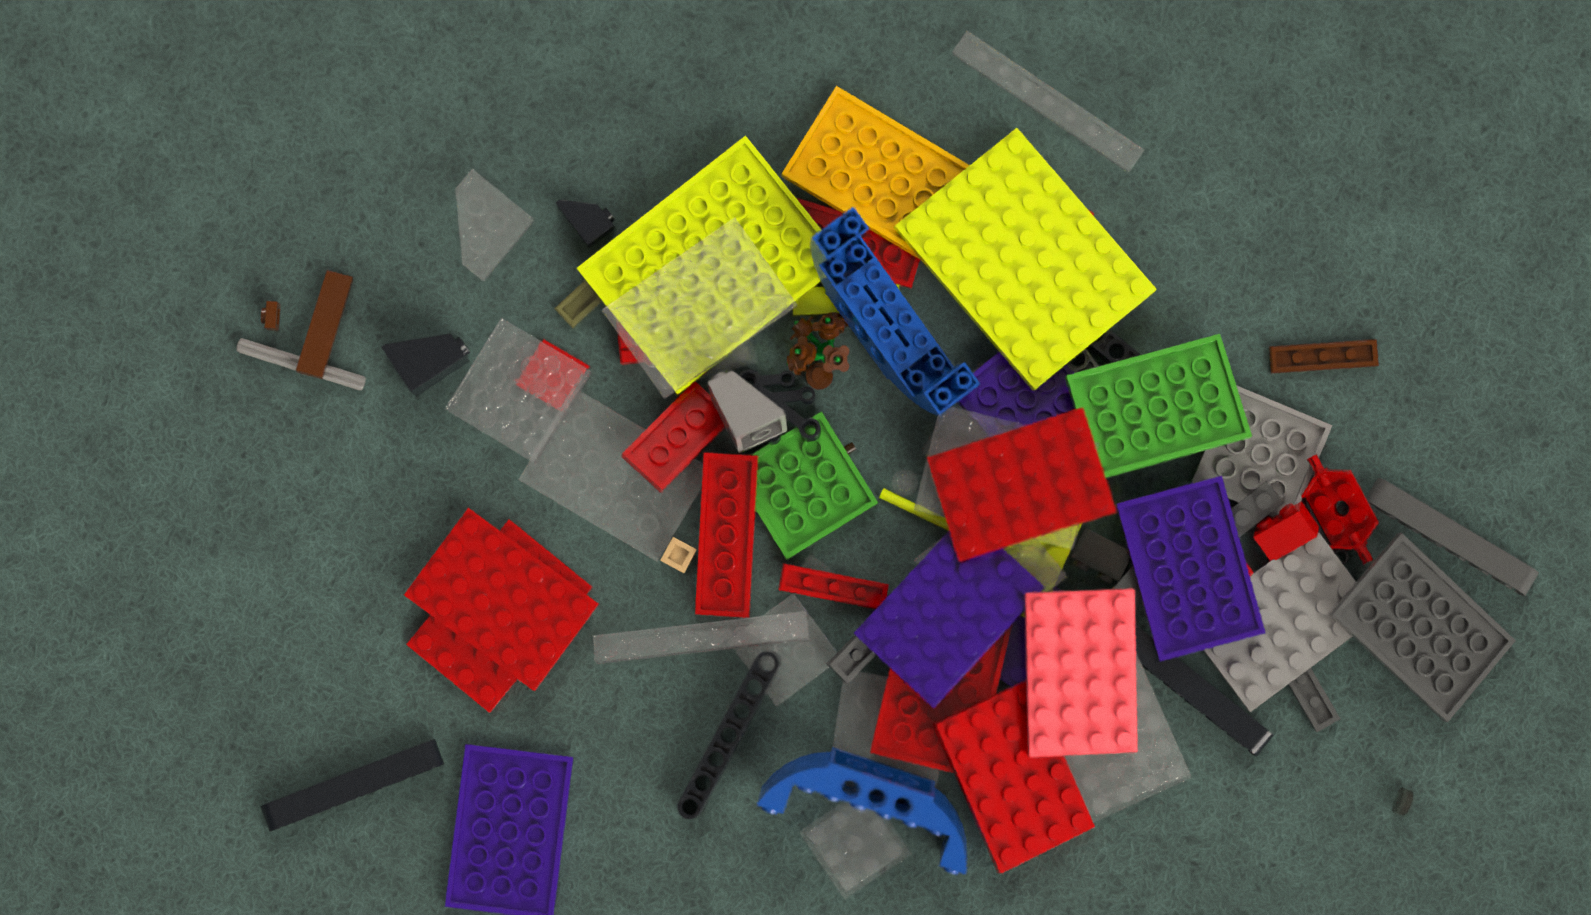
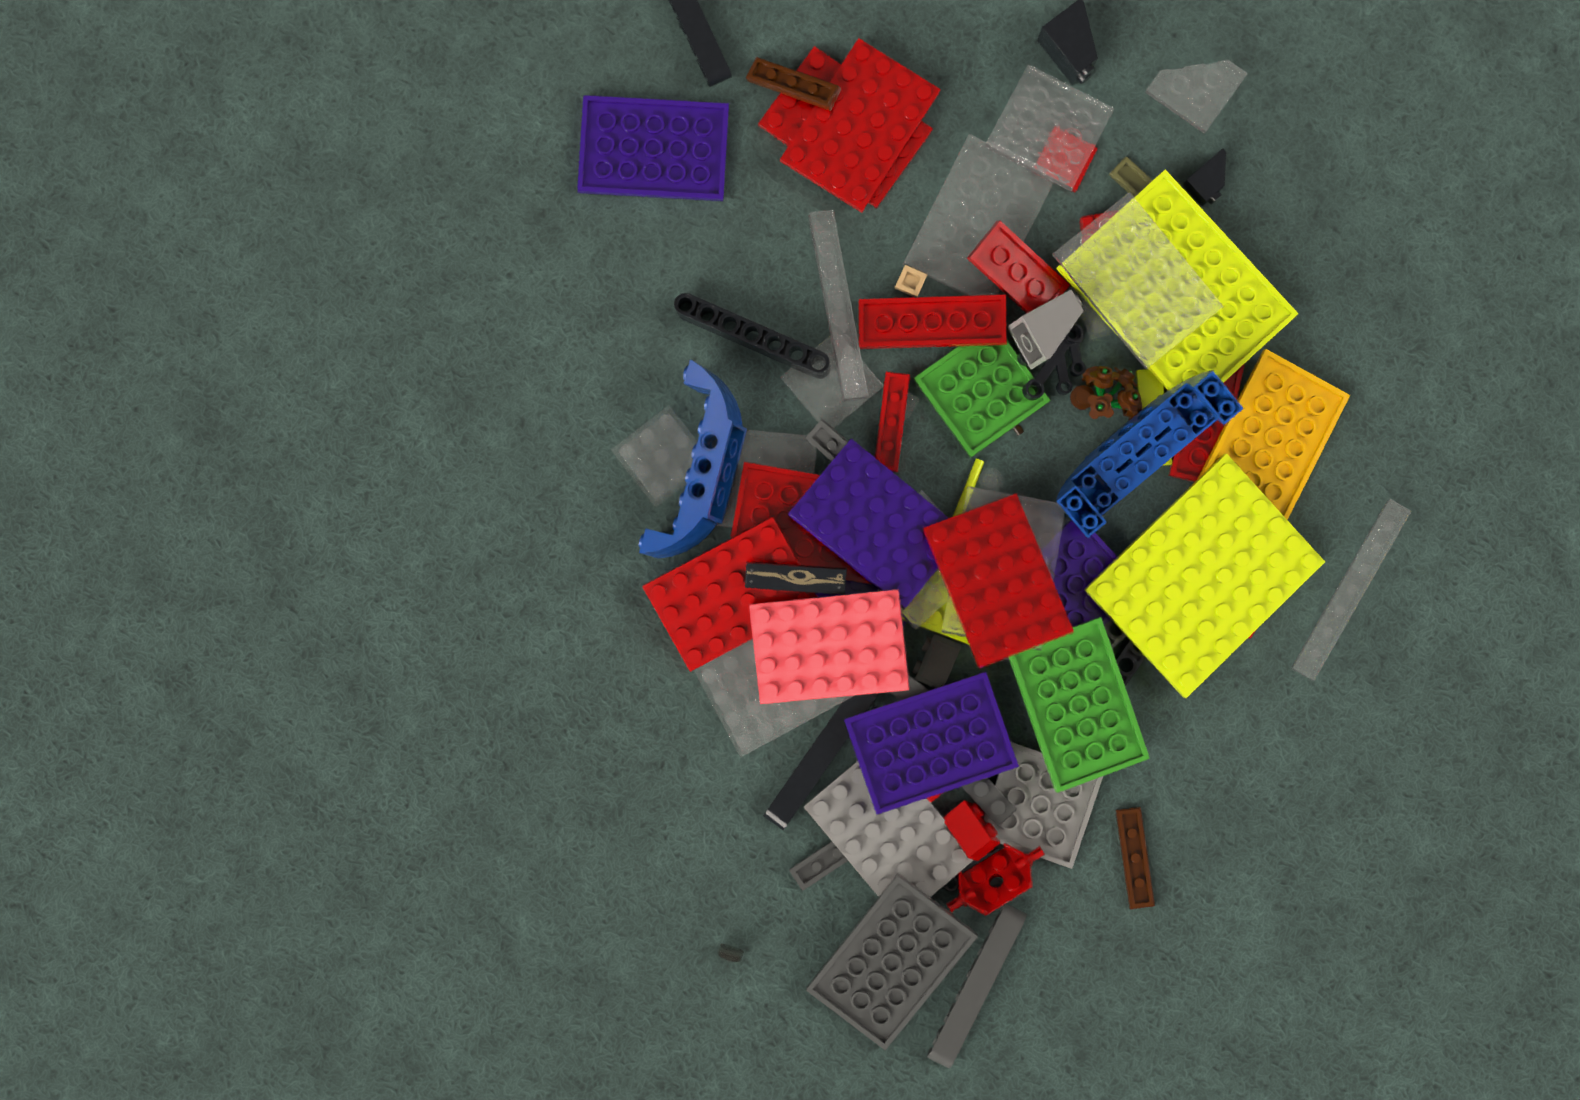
camera: 80 degrees right, 0 degrees up
(449, 670) = (793, 83): none -> reddish brown tile
(1003, 704) = (795, 577): none -> black tile

